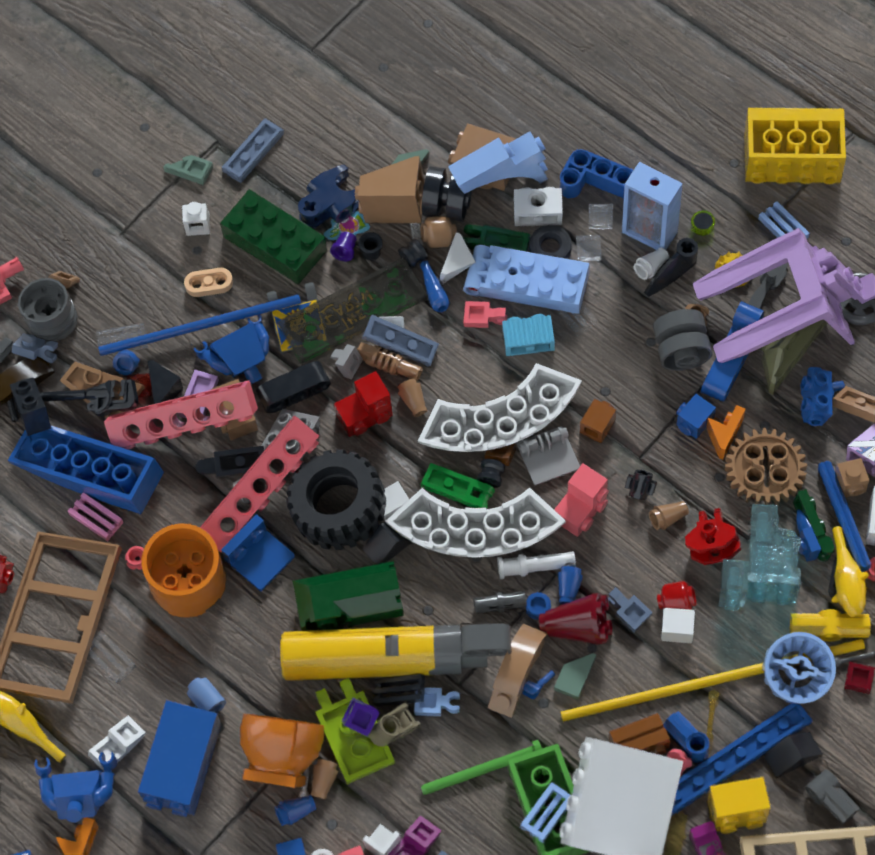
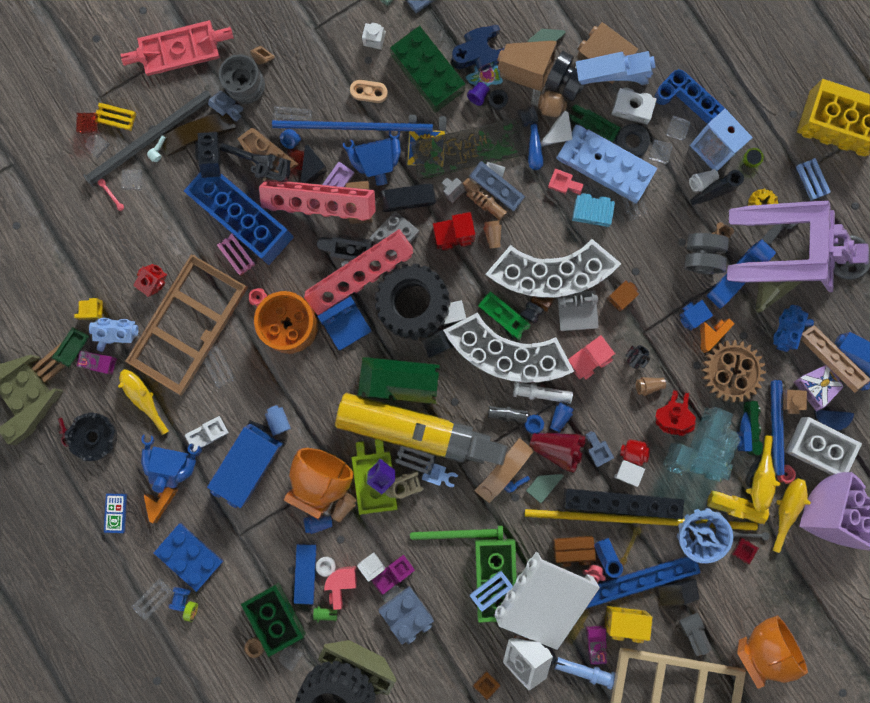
camera: 15 degrees right, 20 degrees up
(681, 663) = (623, 503): none -> black brick

